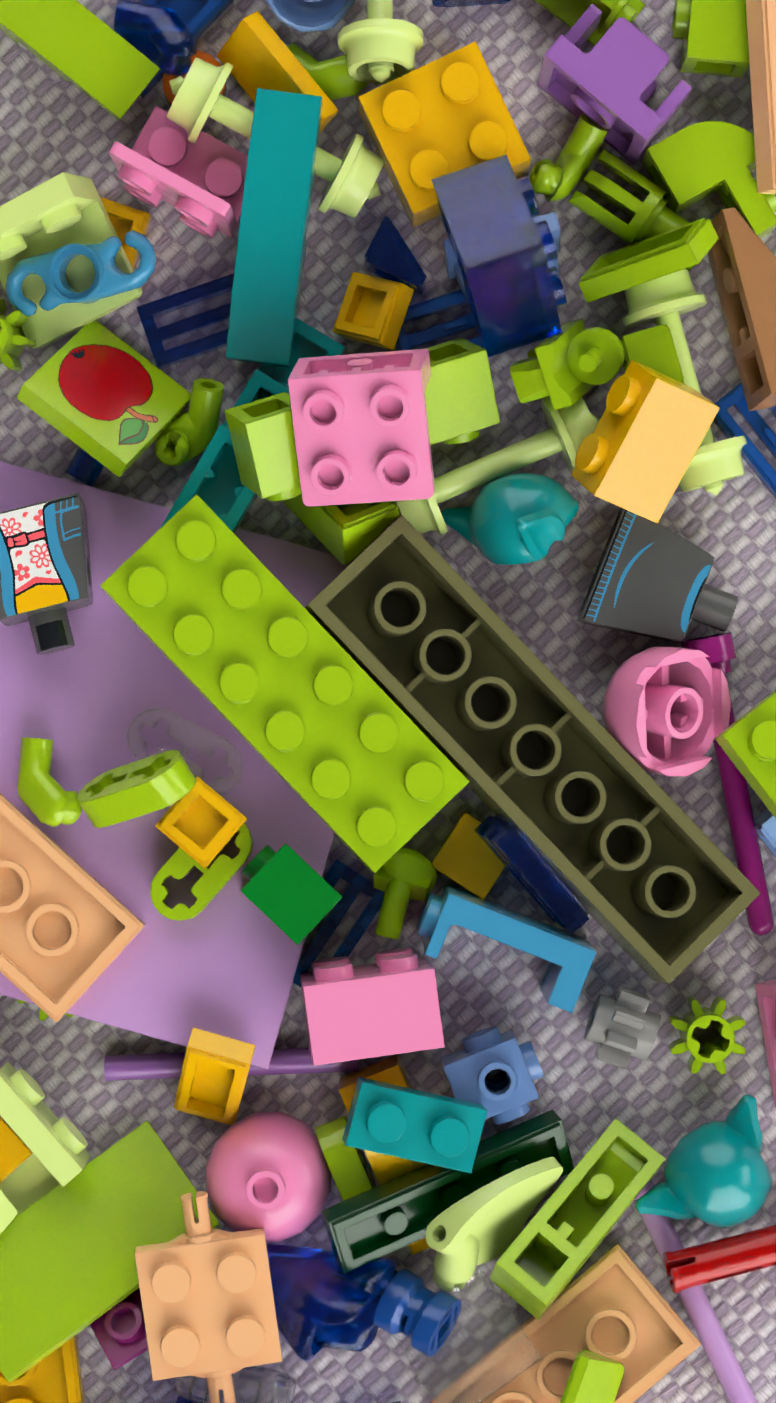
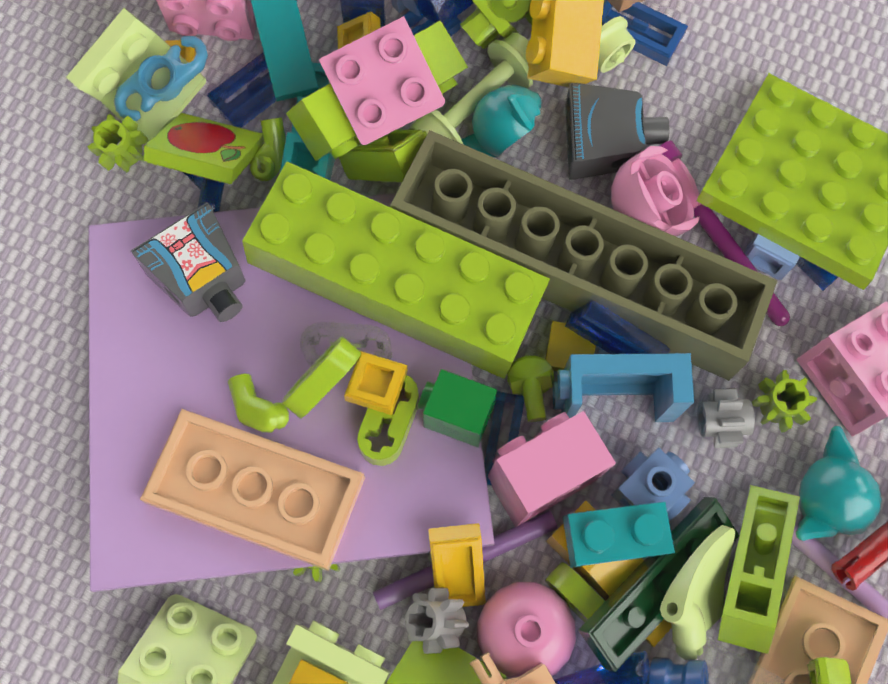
camera: 25 degrees left, 15 degrees down
(163, 1128) = (435, 620): none -> light grey gear

